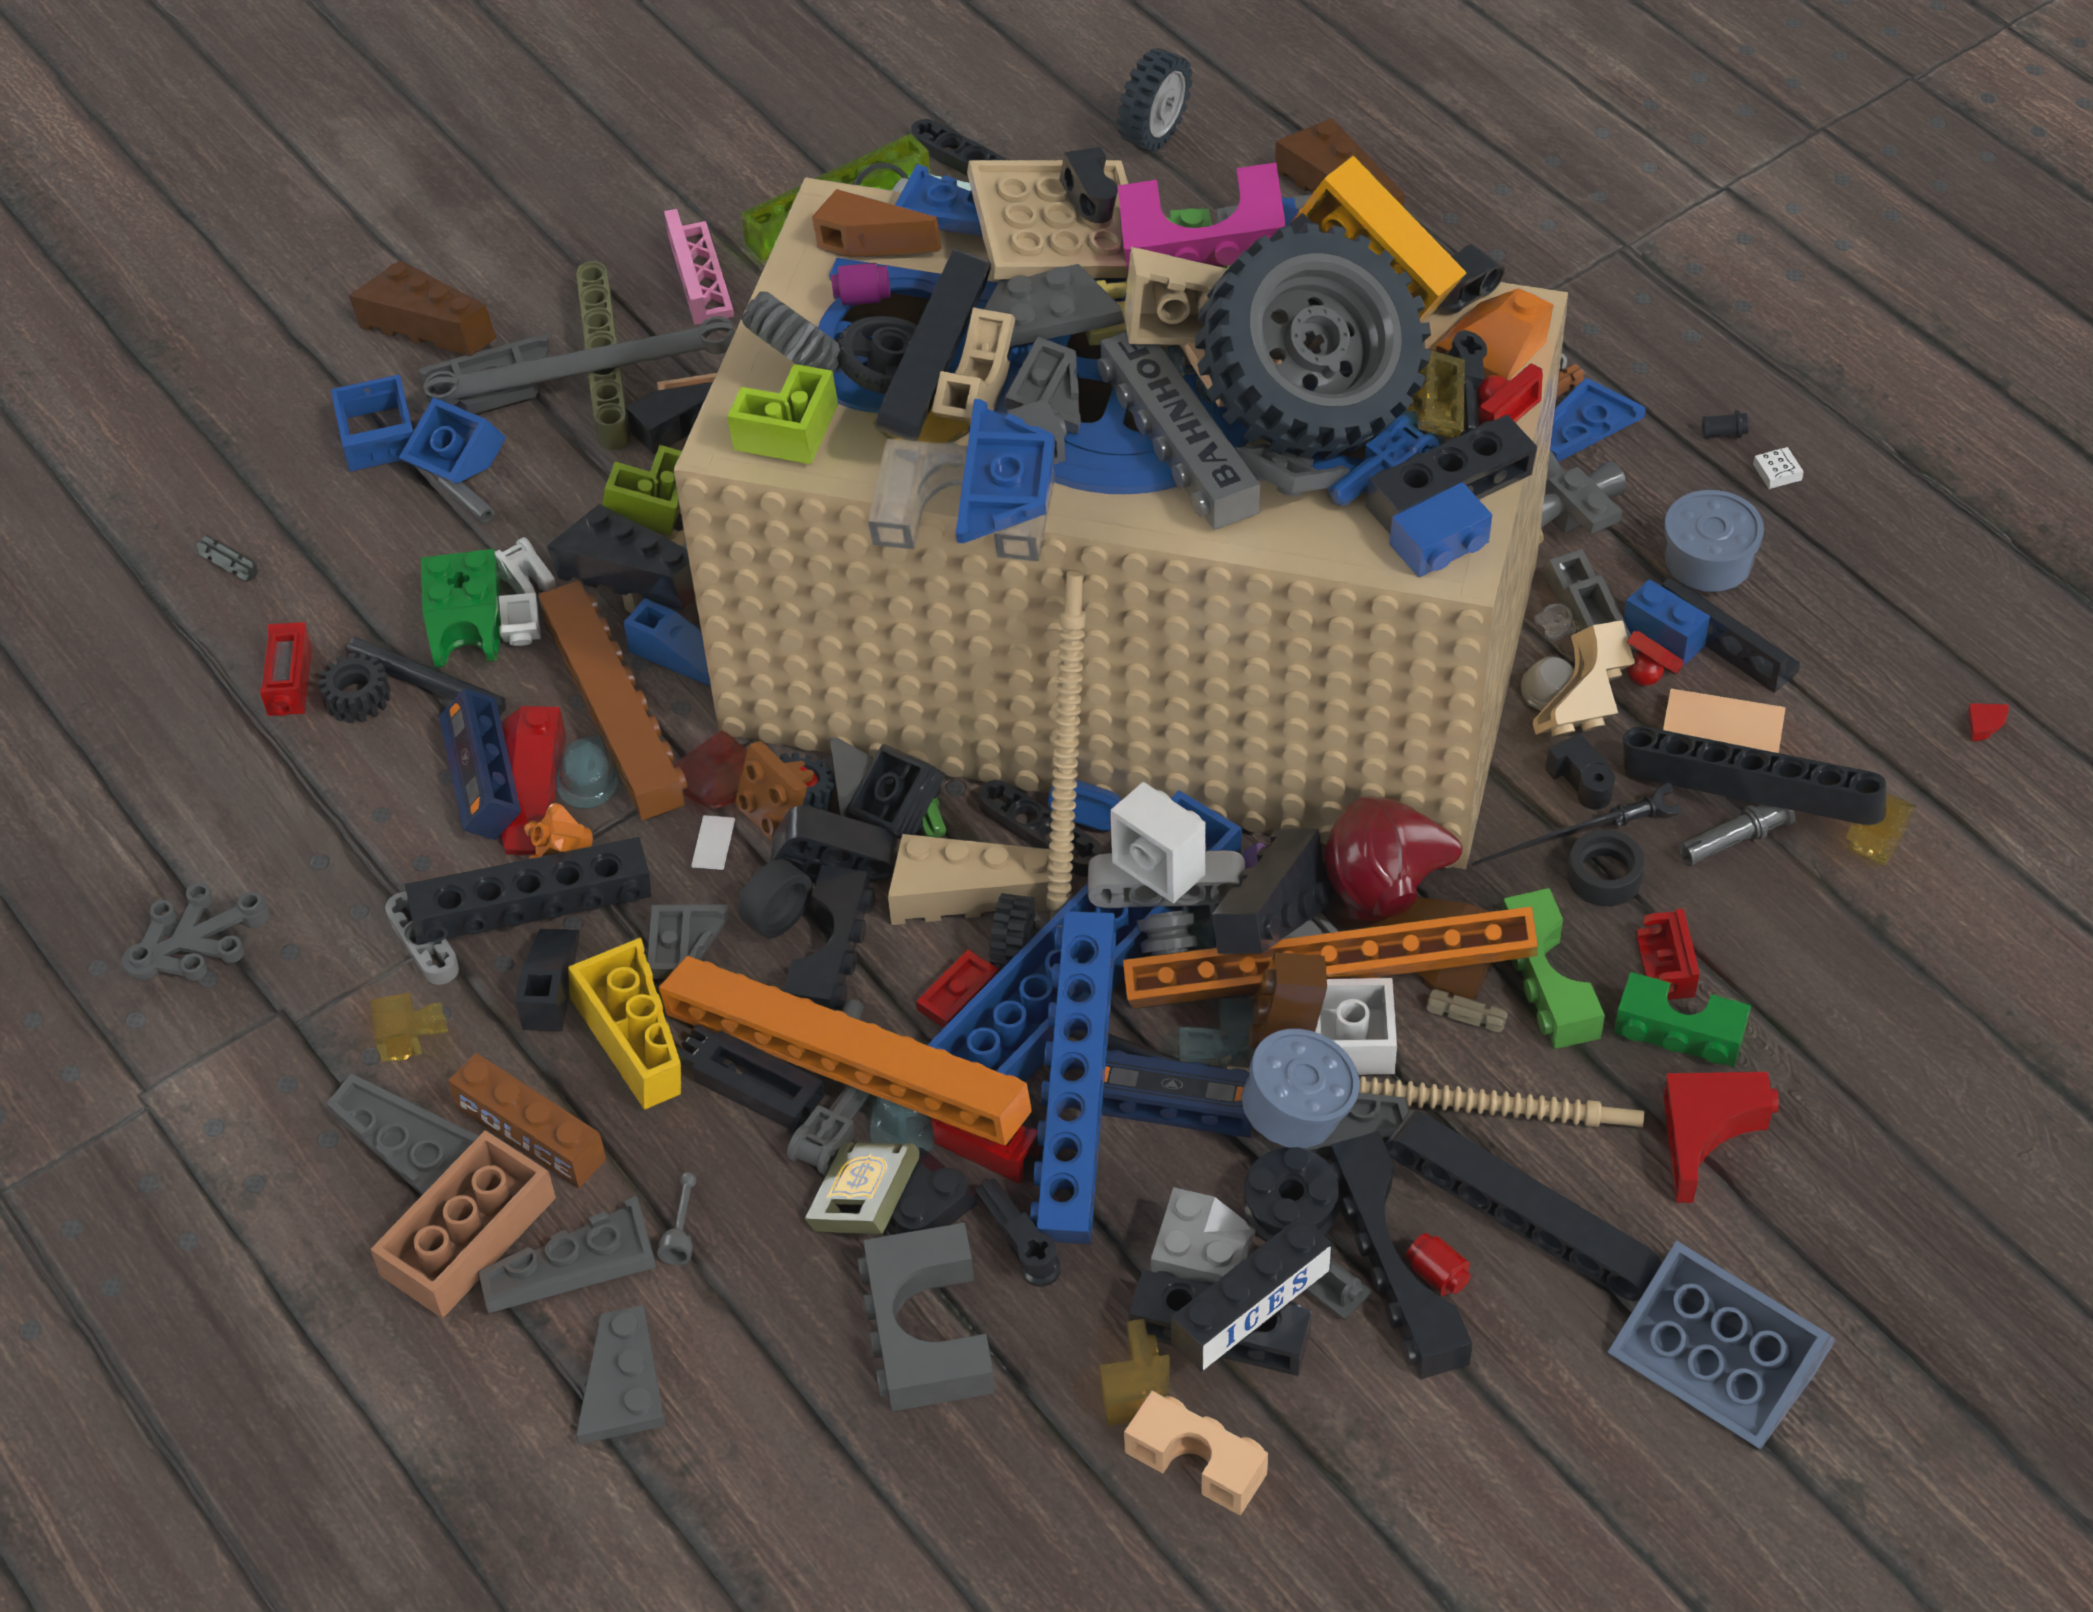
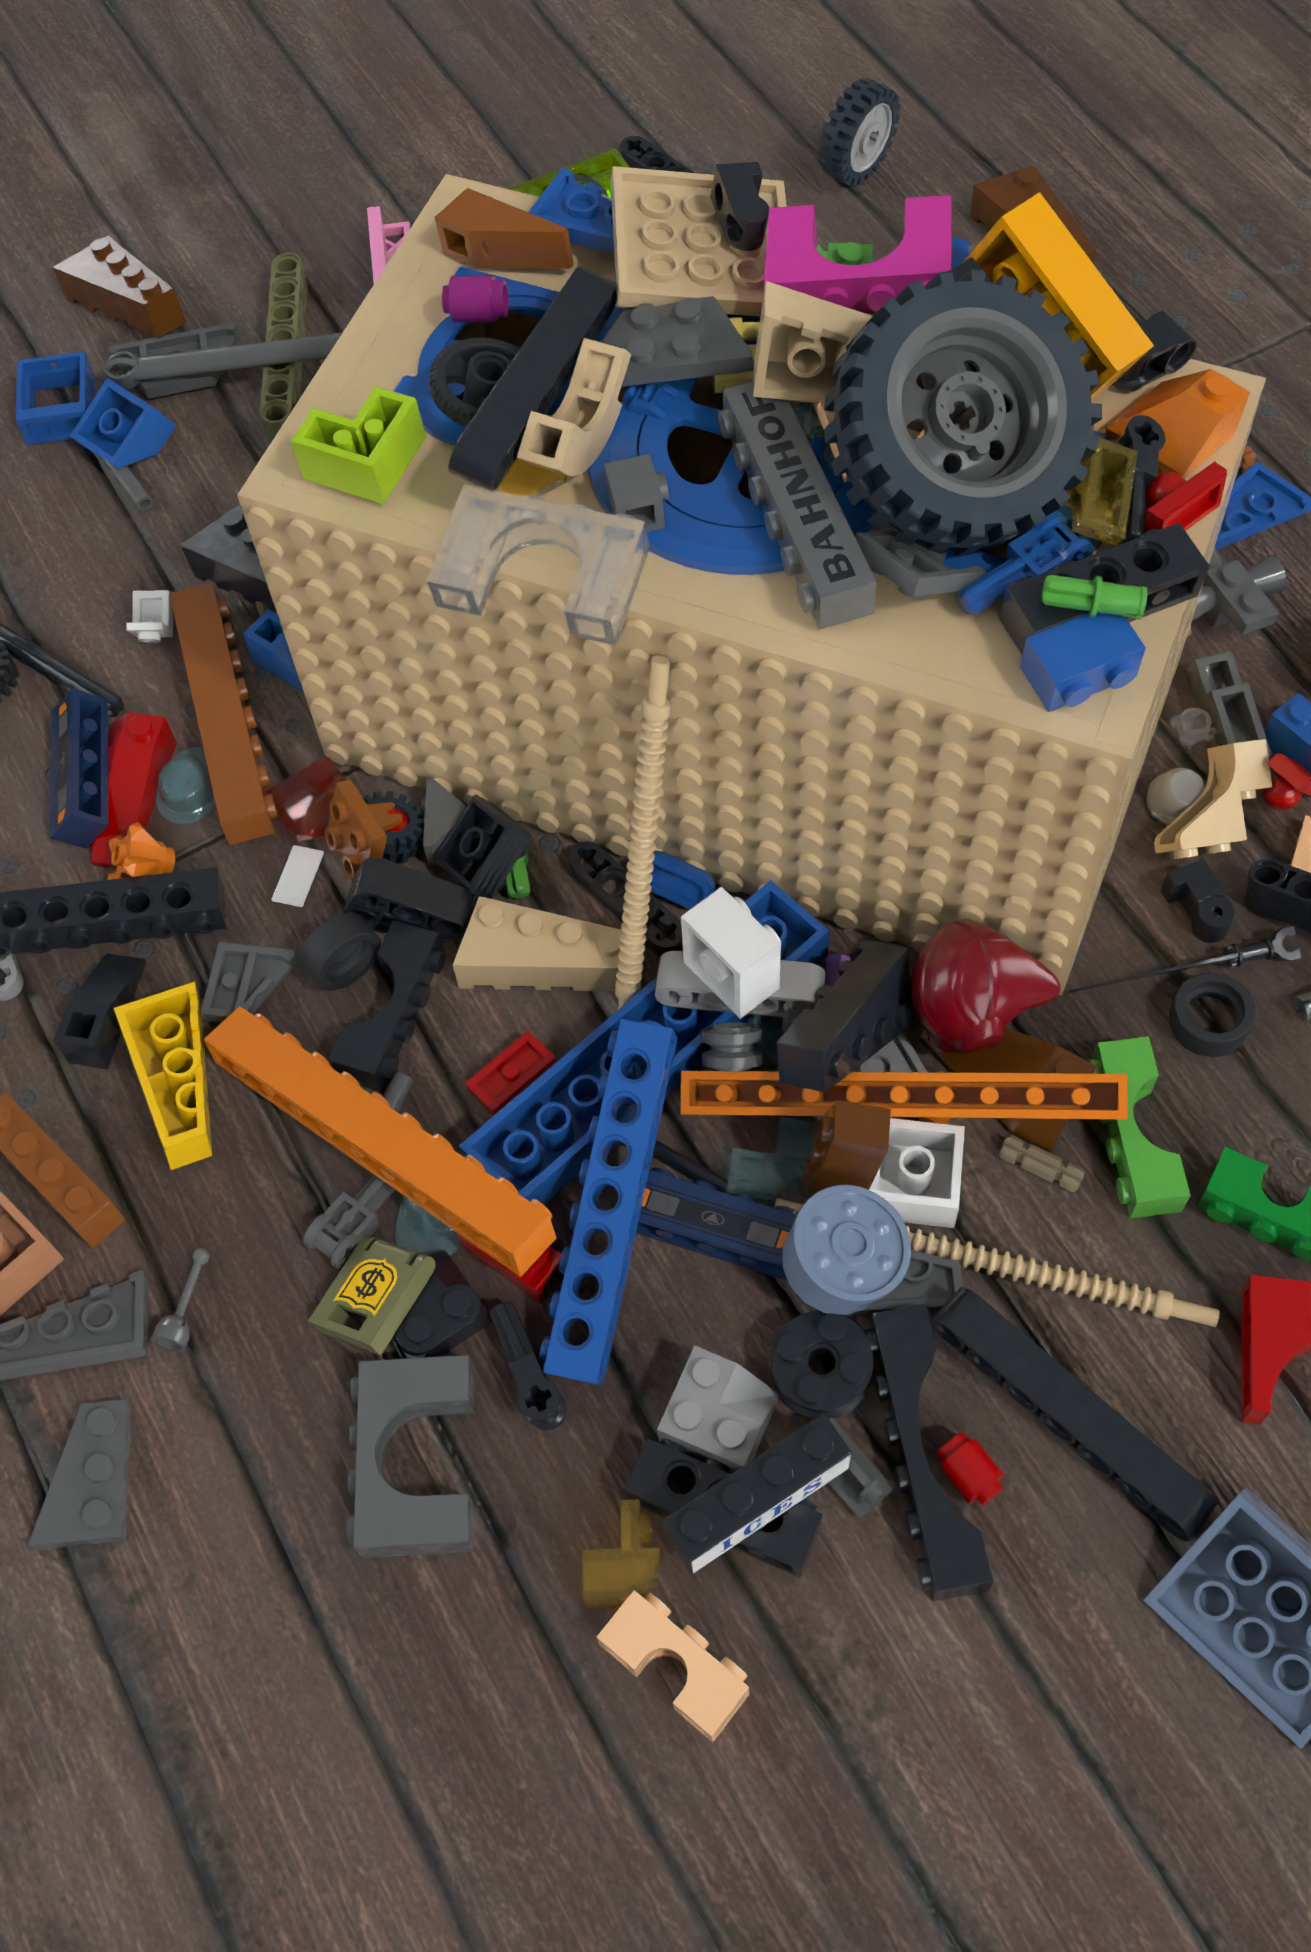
camera: 10 degrees right, 10 degrees up
(461, 603) = (96, 595): green brick -> none
(519, 563) = (164, 556): white piece -> none
(767, 1088) = (298, 1161): black hinge -> none
(790, 333) = (380, 350): dark grey gear -> none
(1003, 473) = (583, 541): blue wing -> none
(1011, 927) = (574, 1014): black tyre -> none
(1048, 375) = (659, 427): dark grey wing -> none
(1444, 477) = (1094, 596): none -> bright green axle
(1669, 952) = (1268, 1124): red hinge -> none

